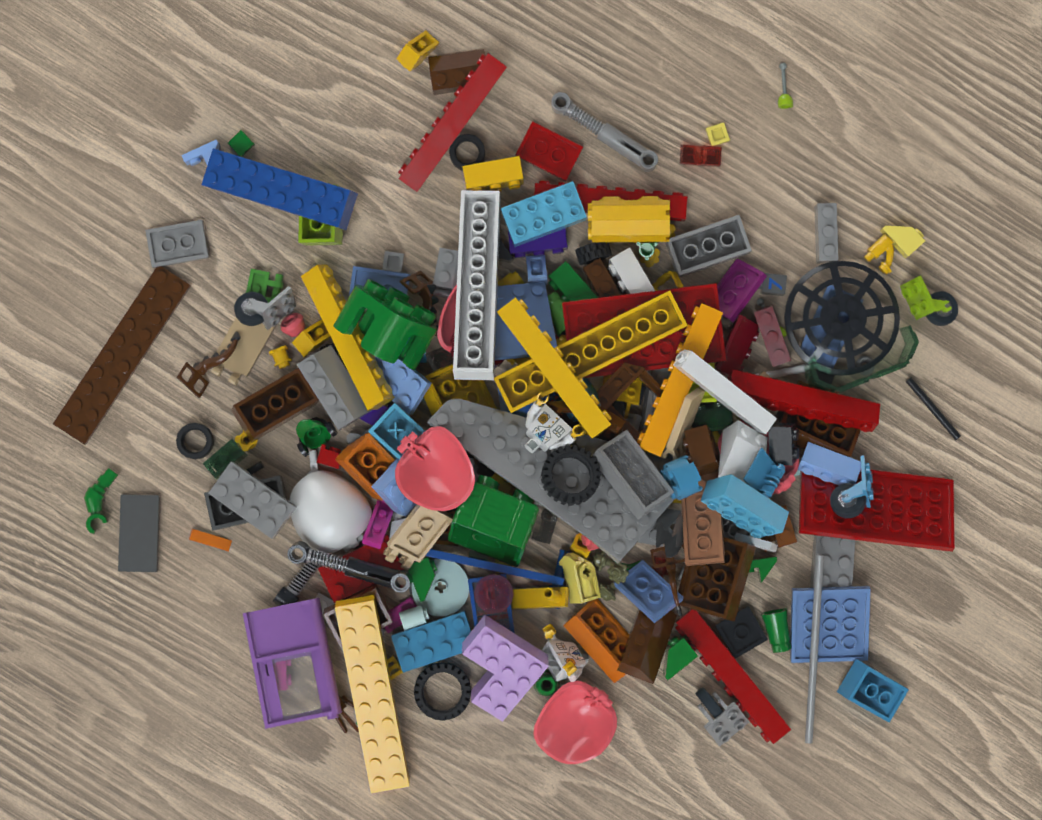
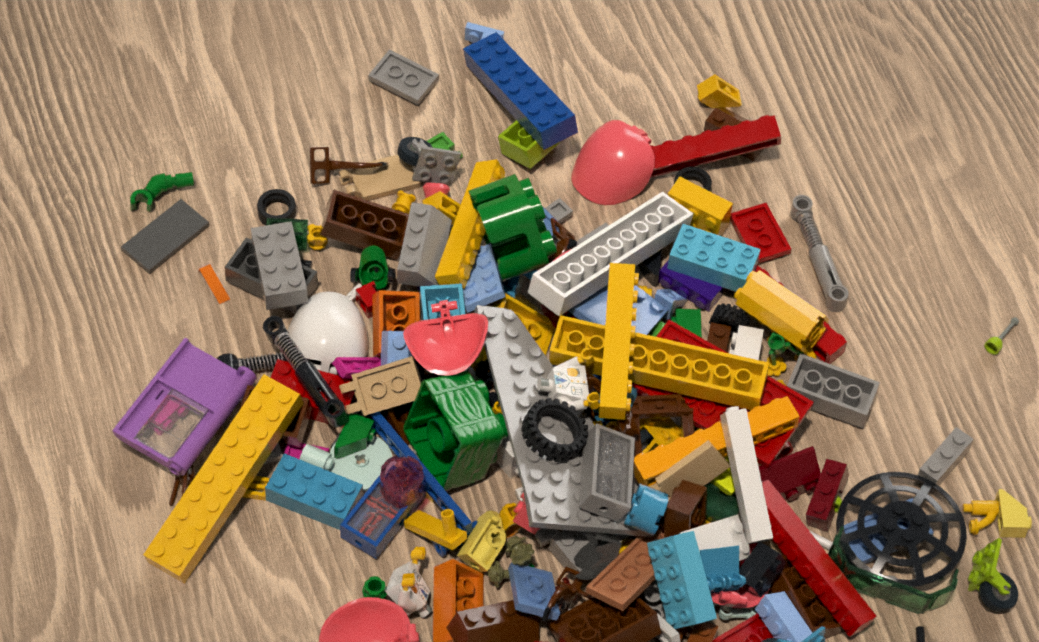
camera: 35 degrees right, 30 degrees down
(121, 354) = (283, 114): reddish brown plate -> none
(241, 143) = (523, 51): green tile -> none
(397, 188) = (613, 164): none -> coral piece
(428, 710) = (278, 514): black tyre -> none
(510, 665) = (360, 551): lavender brick -> none
(547, 527) = (494, 486): clear smoke leg -> none
(700, 155) = (884, 330): clear red slope -> none
(717, 134) = (913, 326): light yellow tile -> none
(738, 288) = (827, 438): magenta plate -> none
(774, 285) = (862, 462): dark grey brick -> none

